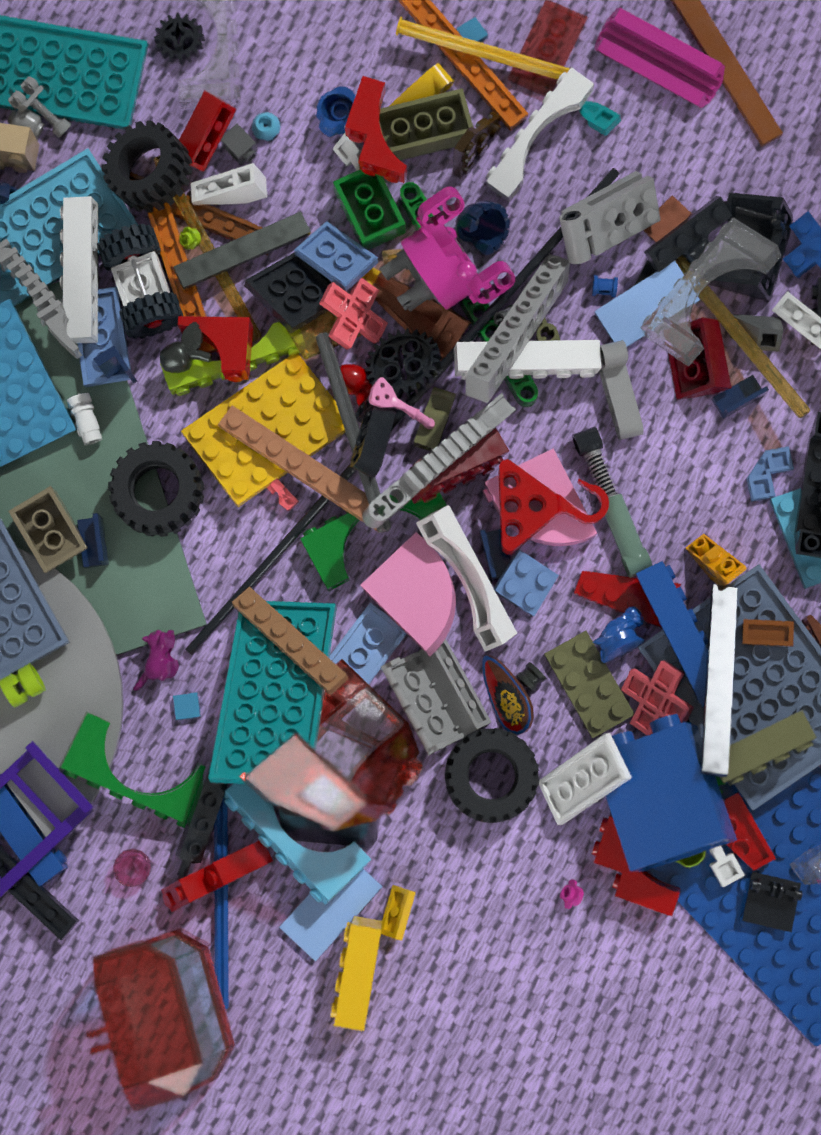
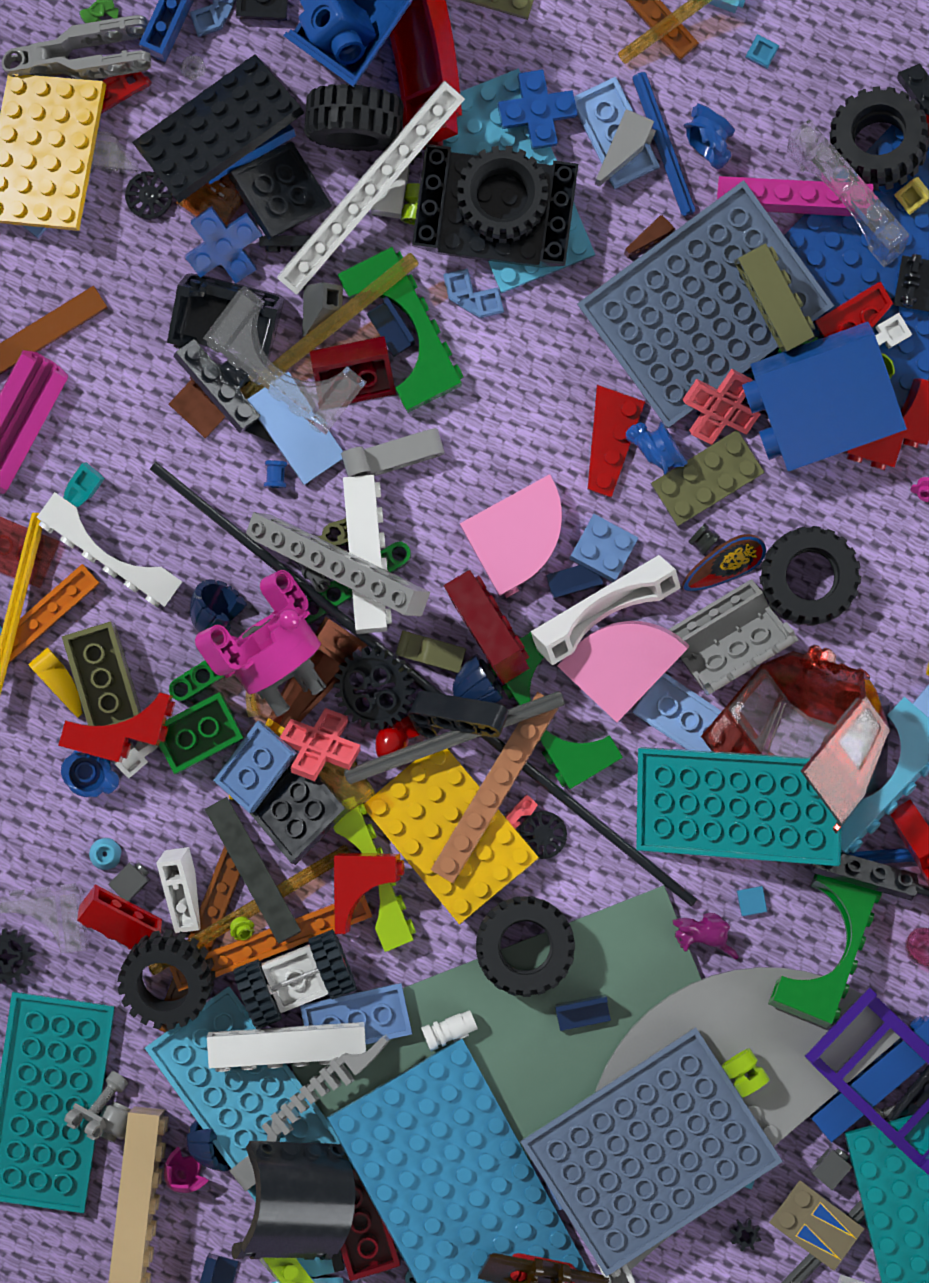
camera: 90 degrees left, 5 degrees up
(48, 529) = (575, 1058): dark tan slope -> none
(111, 362) = (390, 1001): dark blue panel -> none
(178, 355) = (377, 930): pearl dark grey piece -> none
(260, 515) = (544, 834): none -> black wheel
(290, 641) = (682, 793): medium nougat plate -> none
(393, 402) = (421, 694): bright pink piece -> none
(401, 455) = (477, 682): none -> dark blue hair
(437, 461) = (491, 641): light grey piece -> none
(474, 143) = (121, 618): dark brown plate -> none
(553, 504) = (524, 521): red piece -> none
(584, 779) = (812, 479): white tile -> none
(609, 217) = (204, 471): light grey hinge -> none
(633, 554) = (517, 457): piece -> none
(677, 624) = (656, 381): blue brick -> none
(698, 432) = (433, 371): none -> green arch
(715, 561) = (572, 349): light orange slope -> none
(719, 681) = (706, 343): tile -> none
(768, 633) = (651, 293): dark orange tile -> none

